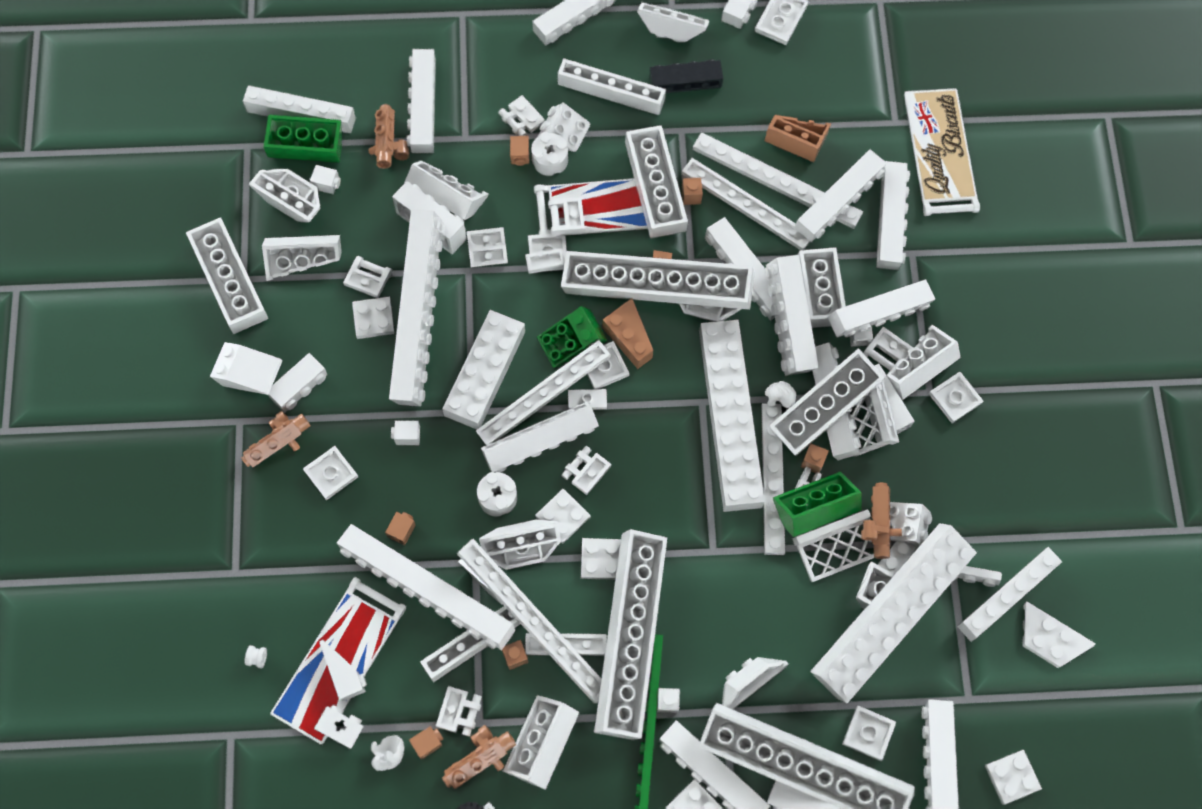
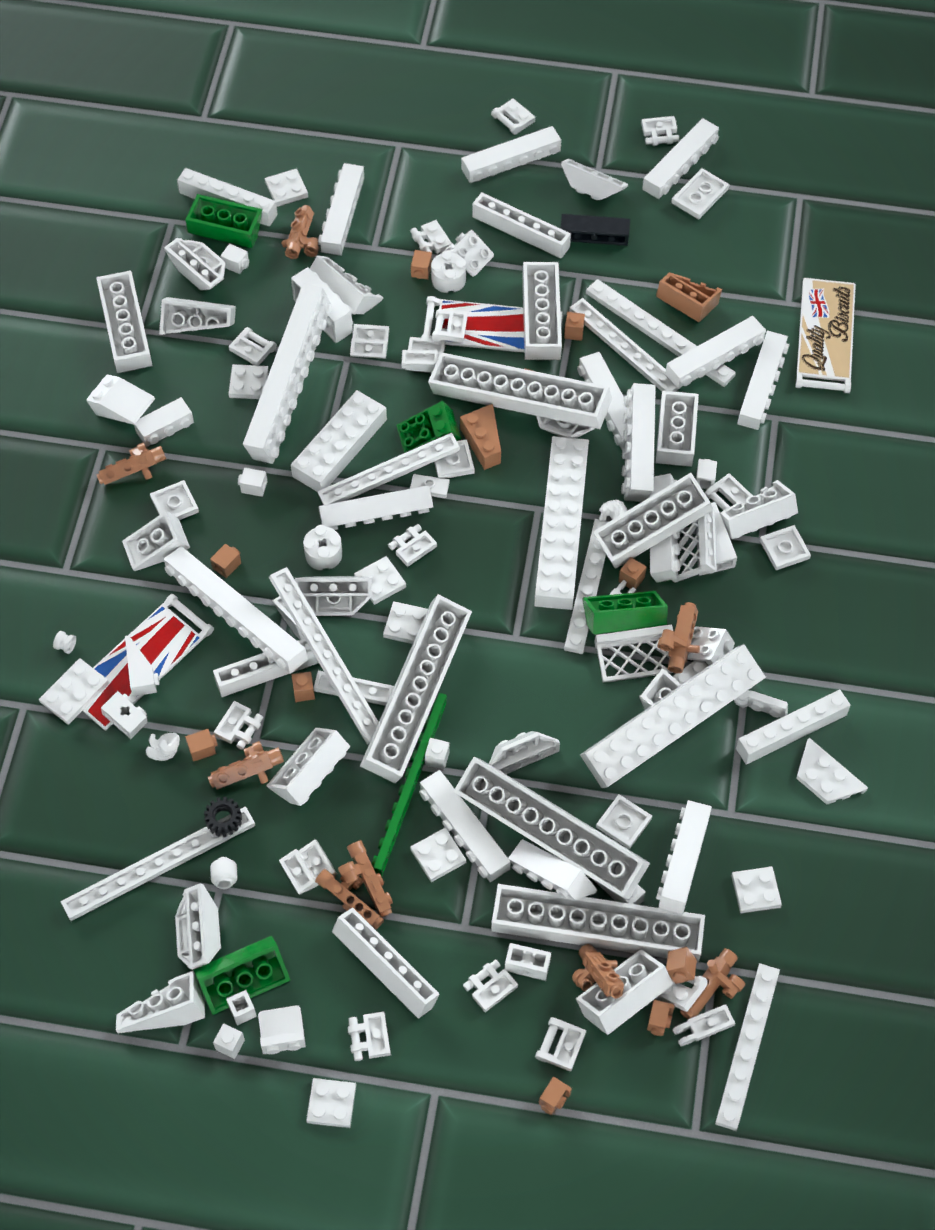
camera: 15 degrees right, 10 degrees down
(279, 710) = (73, 691): none -> white plate
(322, 522) = (155, 541): none -> white slope
(358, 85) = (286, 187): none -> white plate
(881, 308) = (729, 453): white brick -> none

